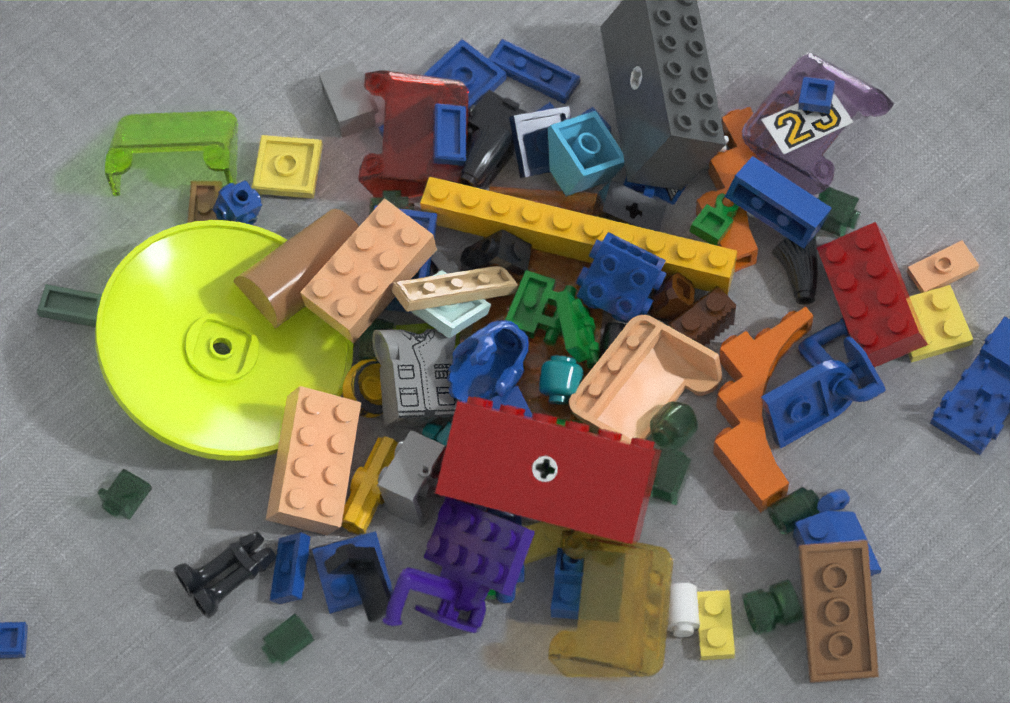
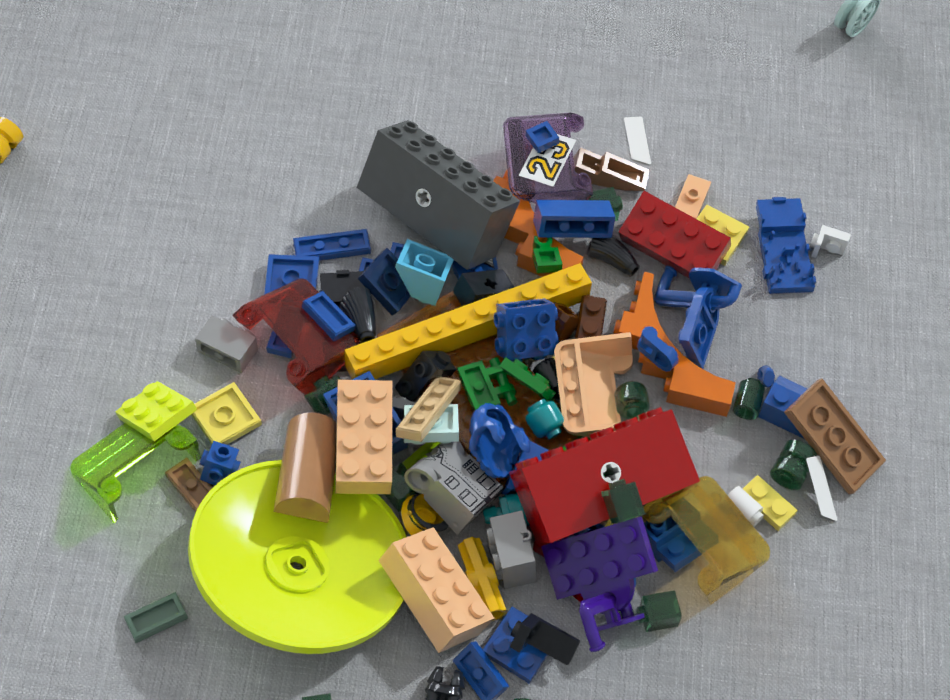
camera: 50 degrees left, 5 degrees down
(225, 117) = (155, 410): none -> neon yellow plate
(503, 641) = (660, 611): none -> clear green brick
(529, 504) = (622, 501): none -> clear green brick
(734, 401) = (656, 350): none -> blue plate
(777, 650) = (821, 487): none -> white sticker
(878, 180) = (611, 171): none -> medium nougat slope
(948, 168) = (637, 139): none -> white sticker

